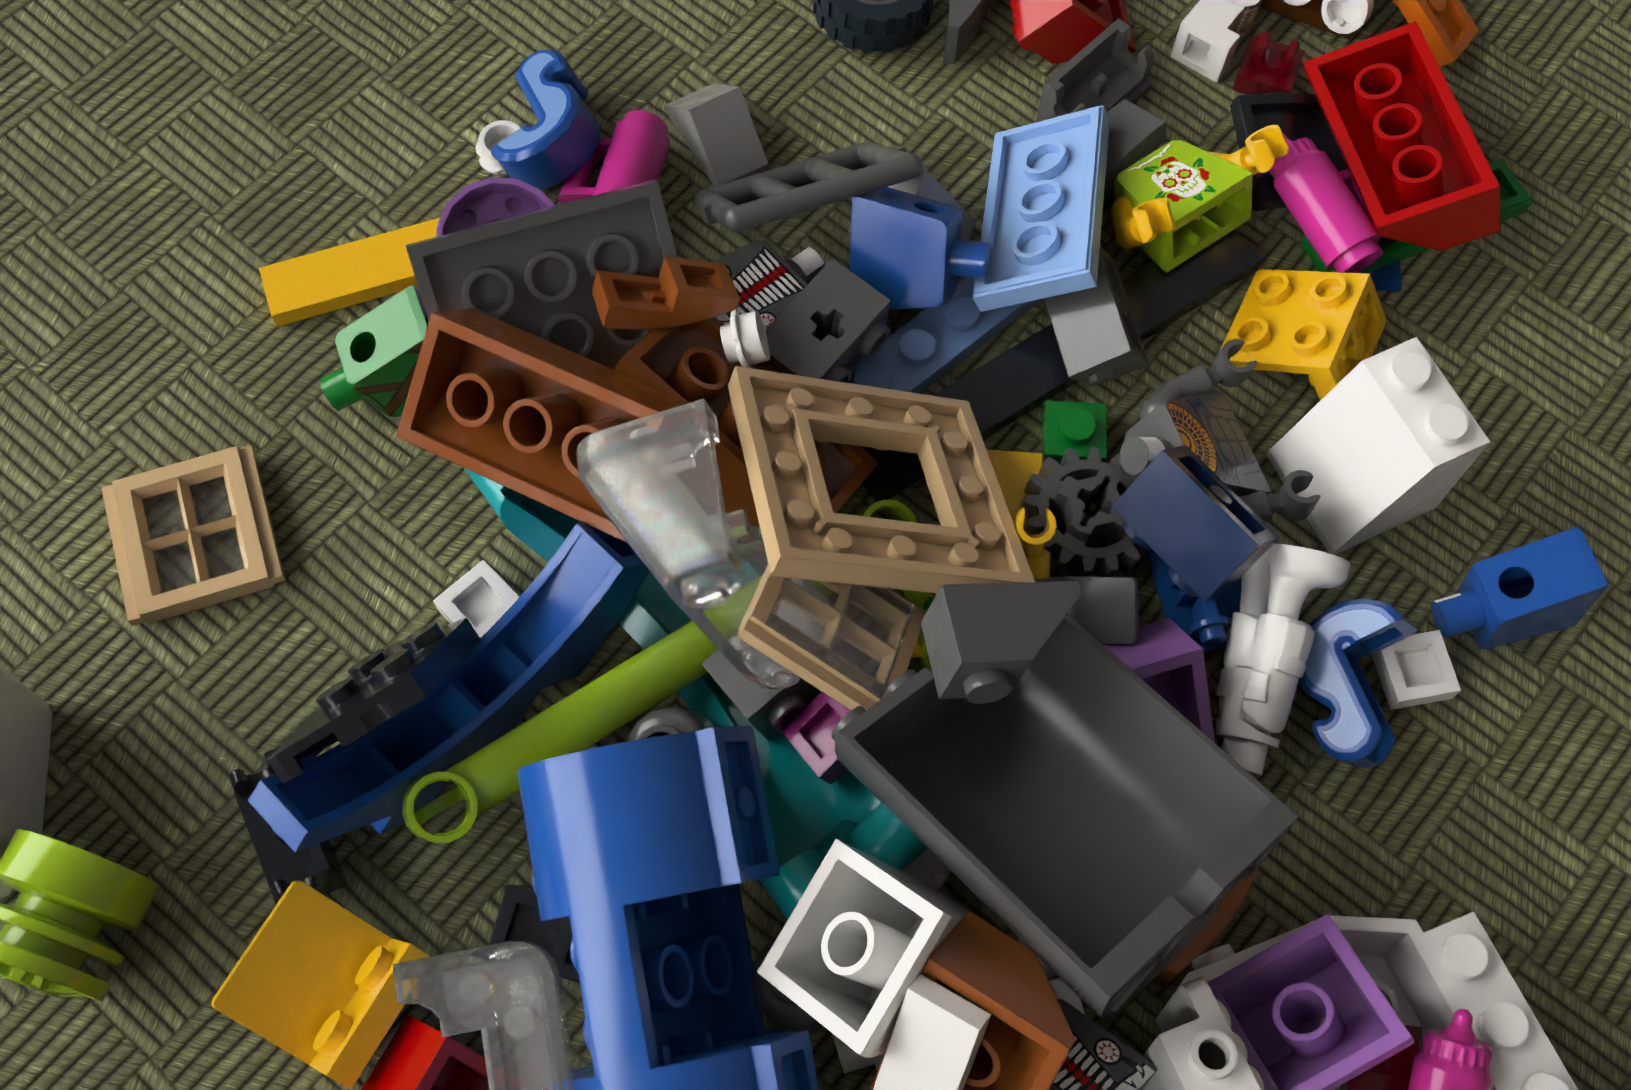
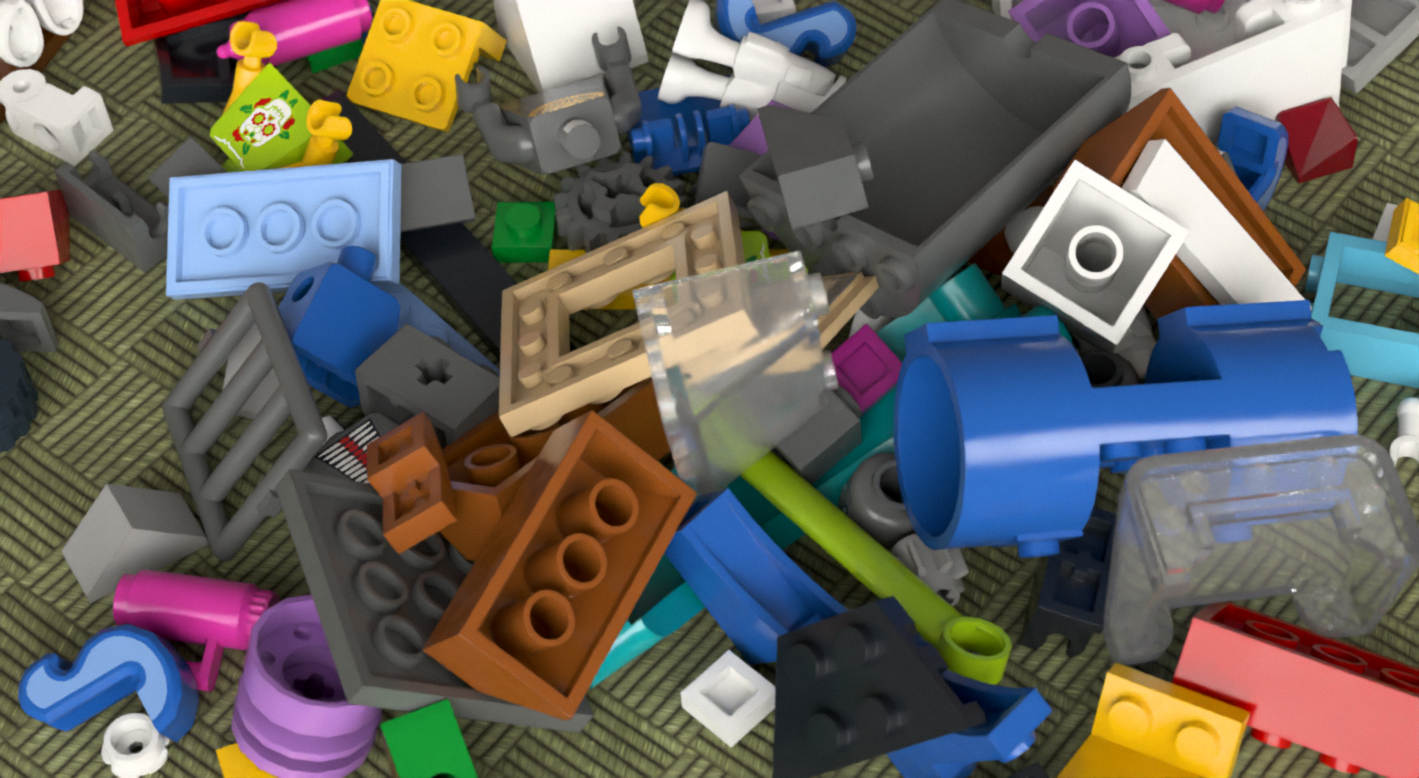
camera: 85 degrees left, 15 degrees down
(745, 339) = (461, 420): white plate -> none
(1193, 523) = (655, 97): dark blue brick -> none
(1268, 66) = (114, 78): dark red tile -> none

